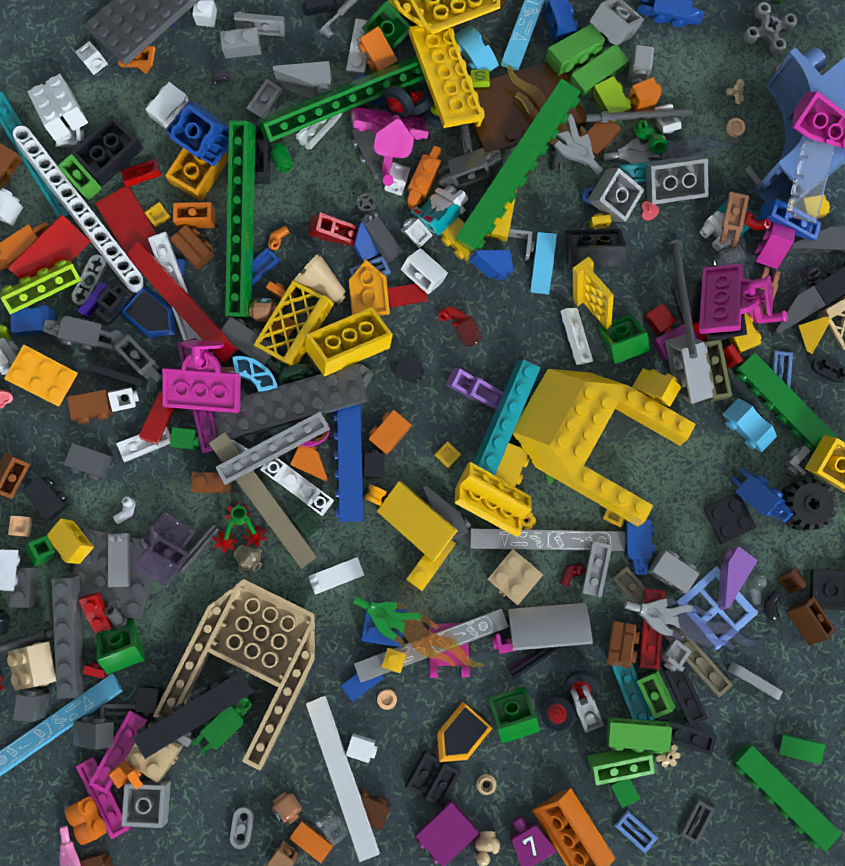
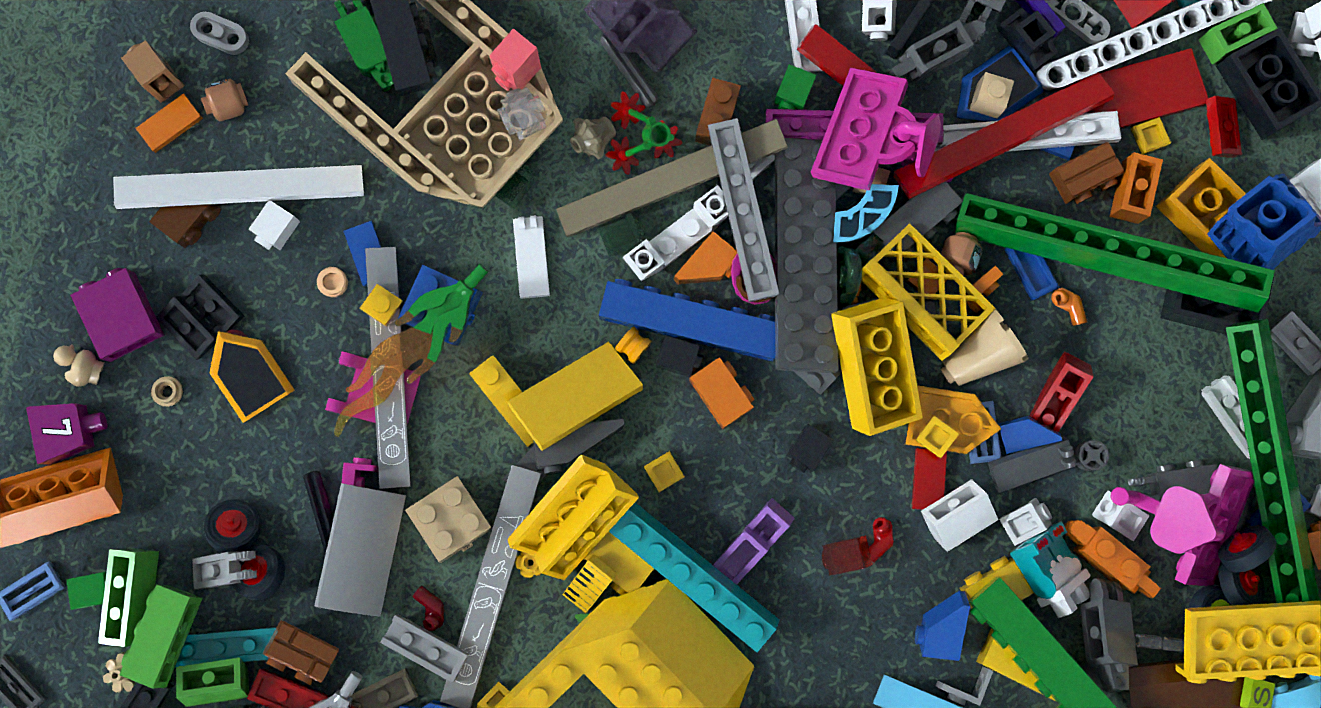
camera: 100 degrees right, 0 degrees up
(158, 315) = (991, 95): none -> tan brick
(215, 618) = (515, 61): none -> coral brick
(247, 605) = (522, 113): none -> clear brick
(281, 157) = (1197, 344): green brick -> none
(332, 828) = (175, 155): clear brick -> none
(381, 295) = (937, 437): none -> yellow plate
(514, 715) = (251, 459): green slope -> none
(528, 479) = (589, 583): none -> yellow tile

